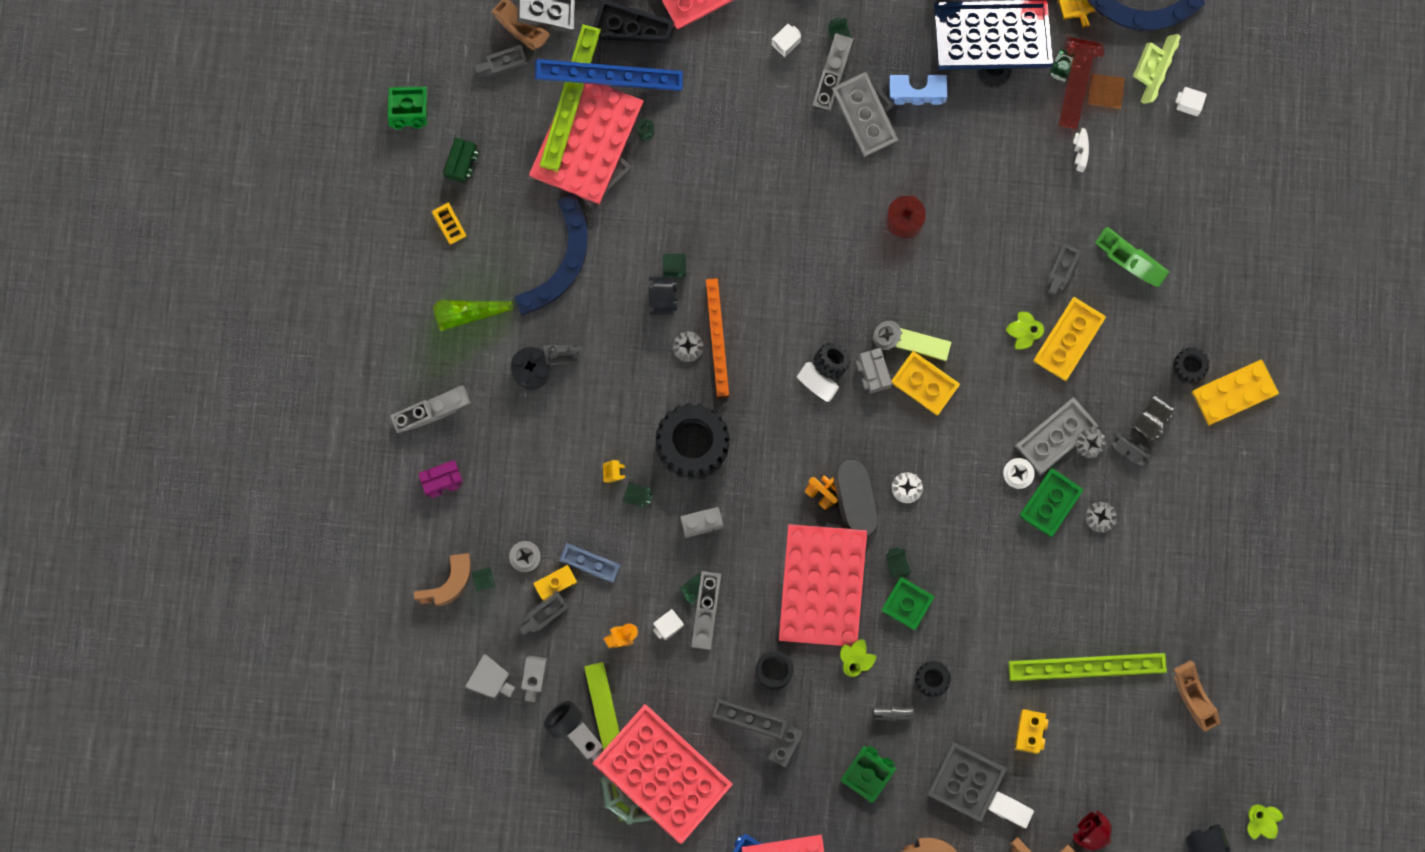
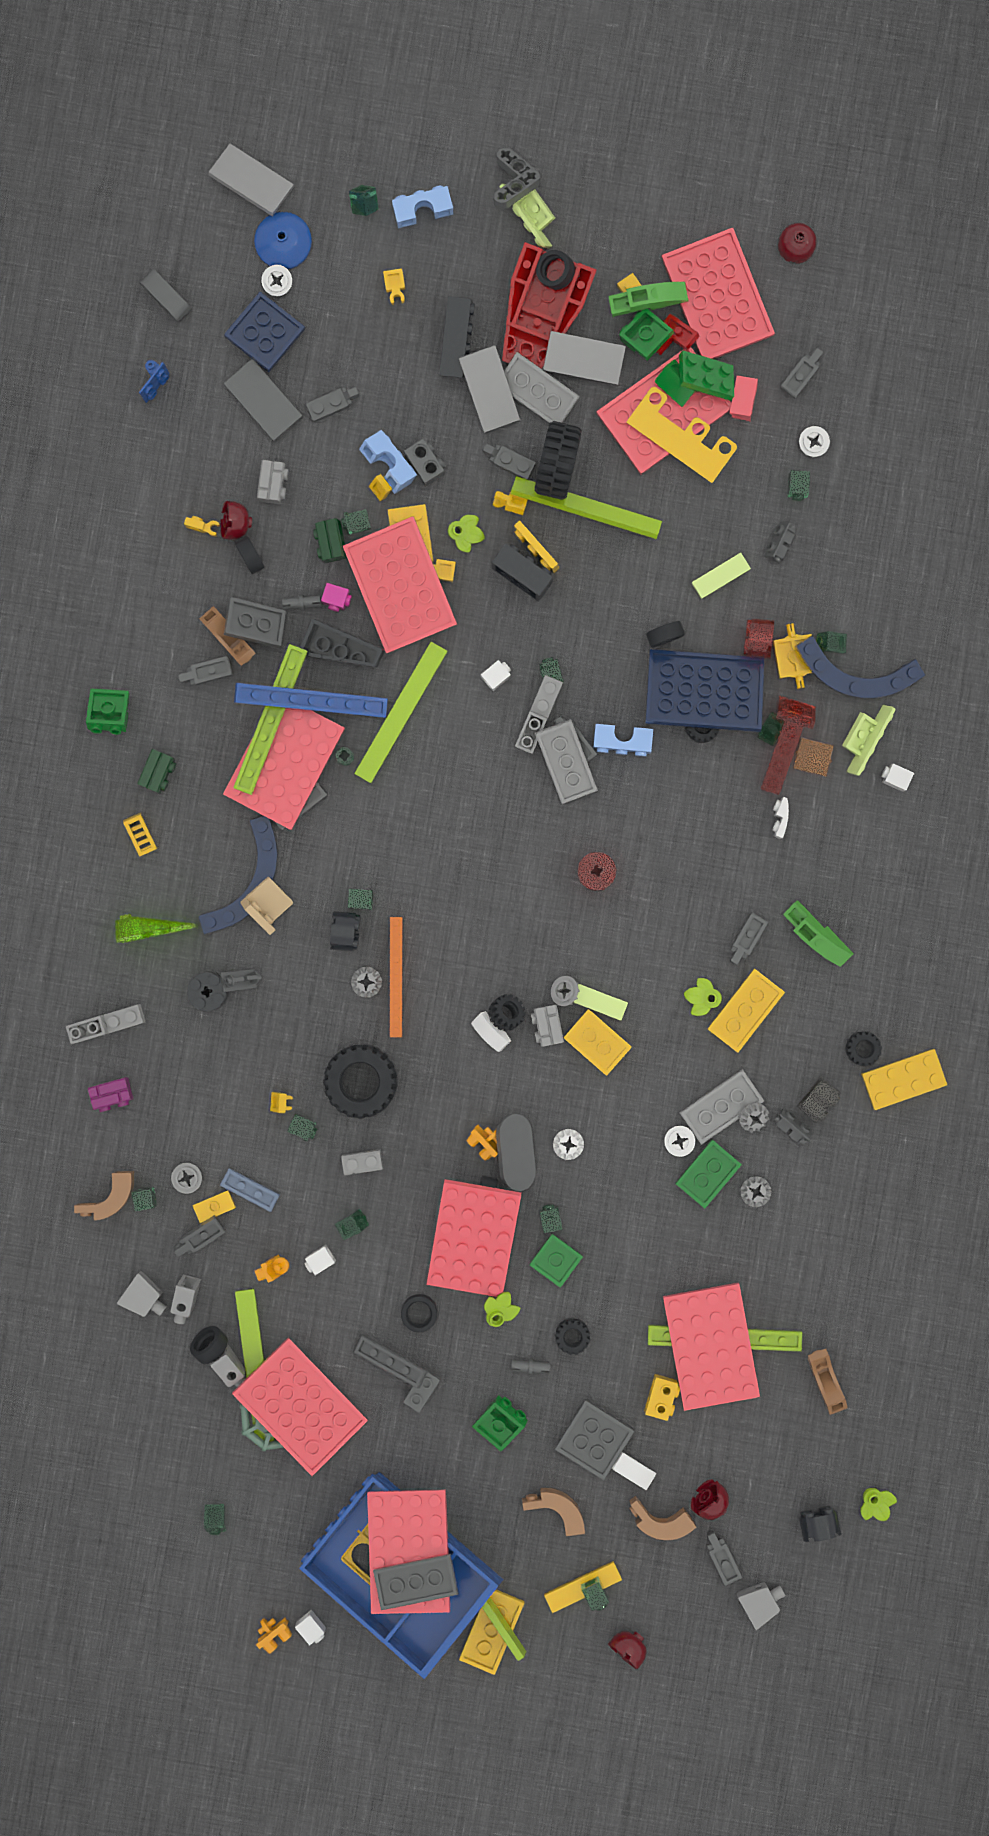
camera: 10 degrees right, 10 degrees up
(582, 276) = (266, 904): none -> tan bracket
(696, 84) = (401, 712): none -> lime tile
(706, 610) = (357, 1251): light grey slope -> none
(1075, 675) = (711, 1346): none -> coral plate

